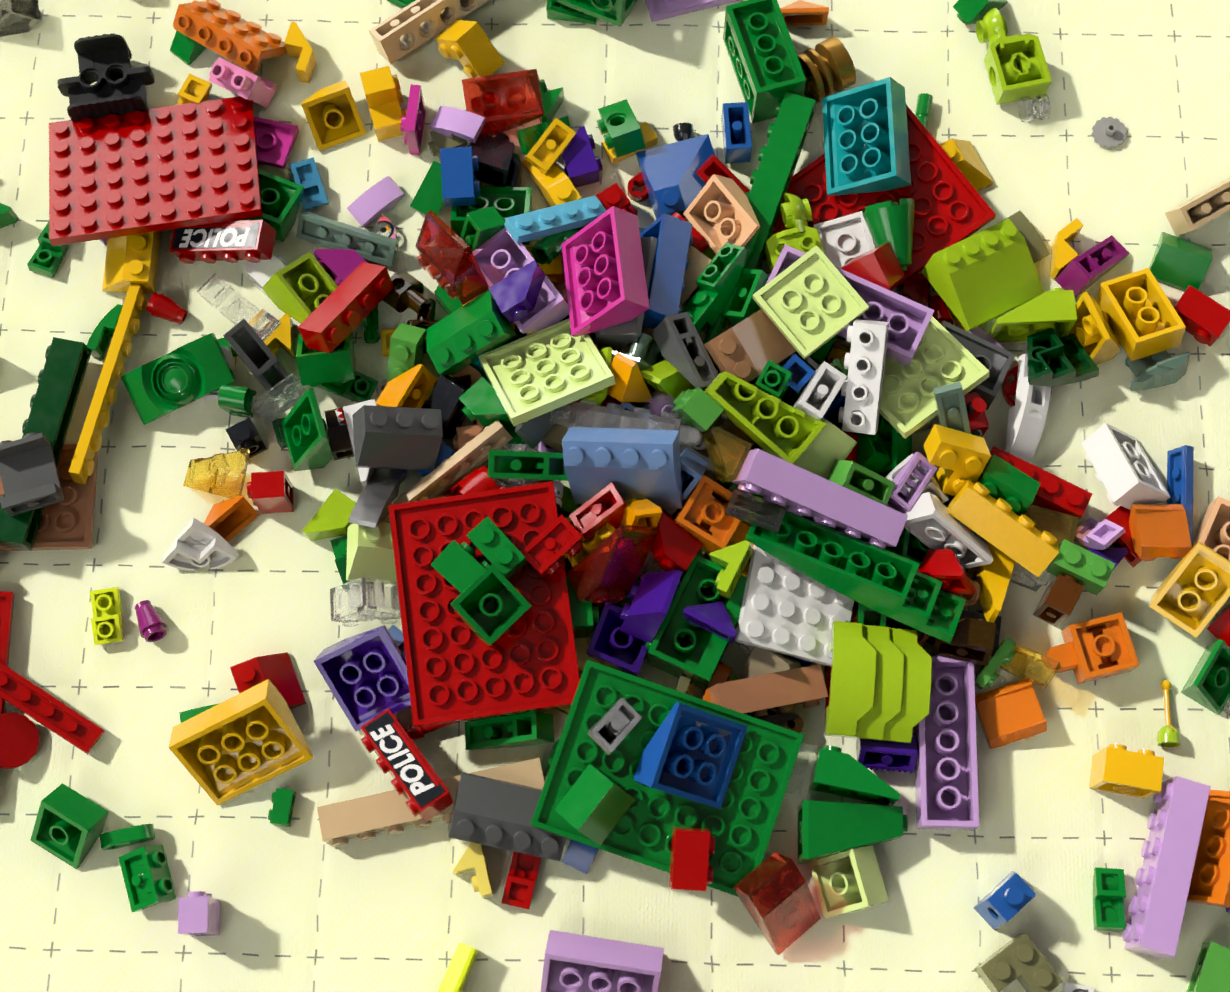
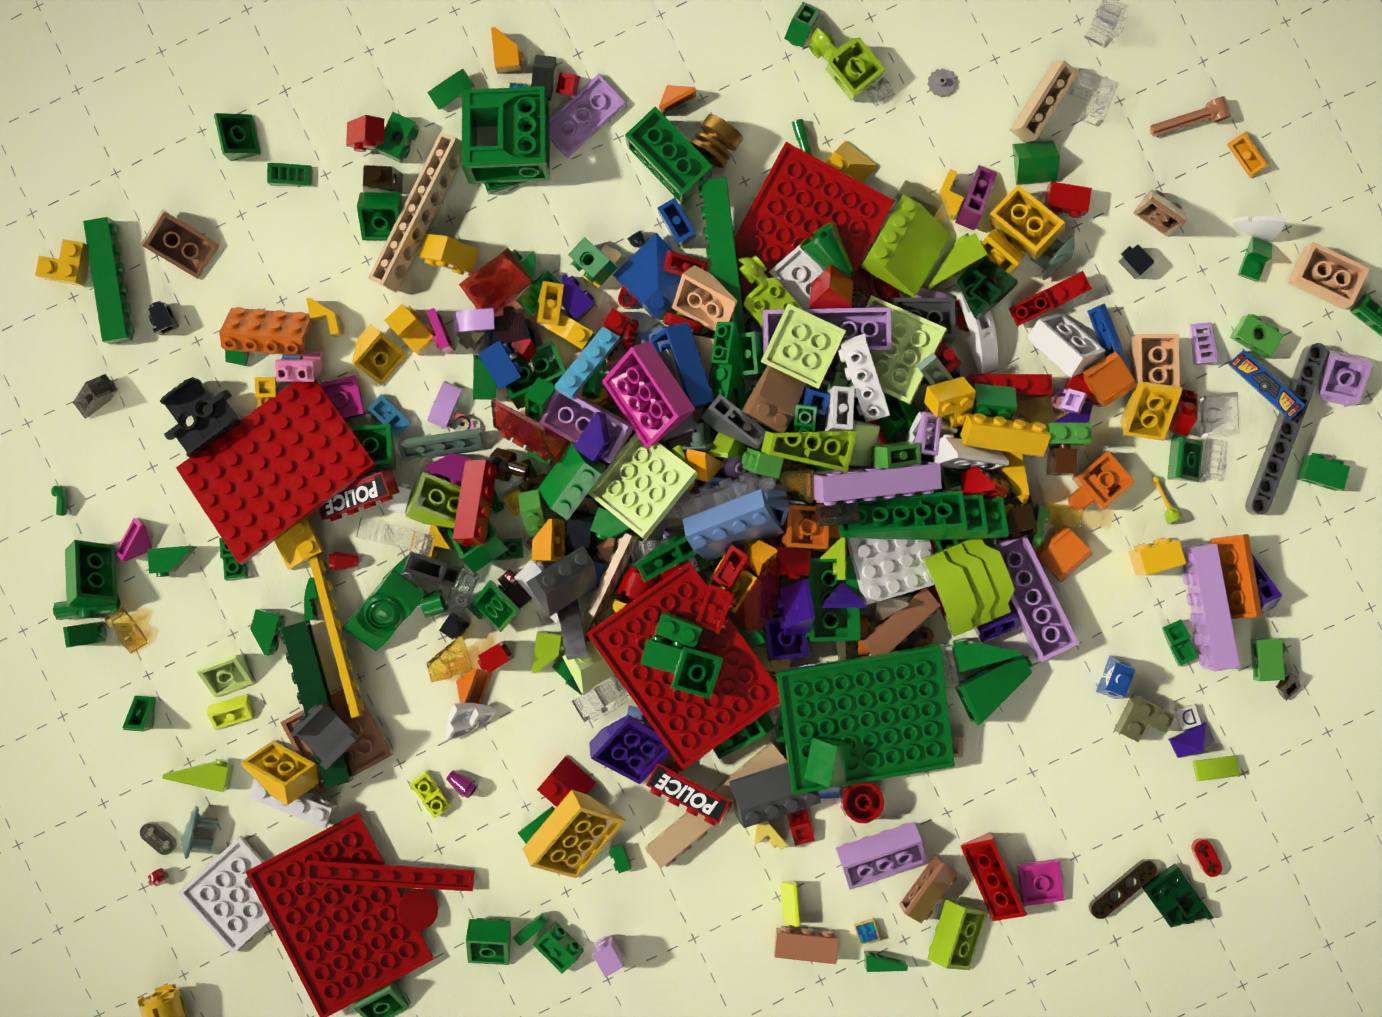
camera: 30 degrees left, 15 degrees up
(34, 339) = (266, 630): none -> green slope
(495, 178) = (524, 349): none -> red slope
(612, 870) = (868, 810): none -> red brick
(614, 726) = (818, 709): flat silver slope -> none
(690, 859) = (906, 763): red brick -> none
(692, 755) = (877, 701): blue slope -> none
(778, 901) = (972, 756): clear red slope -> none
(848, 881) = (1012, 720): yellowish green slope -> none
(866, 139) = (776, 187): teal slope -> none
(1129, 414) = (1050, 298): none -> red slope

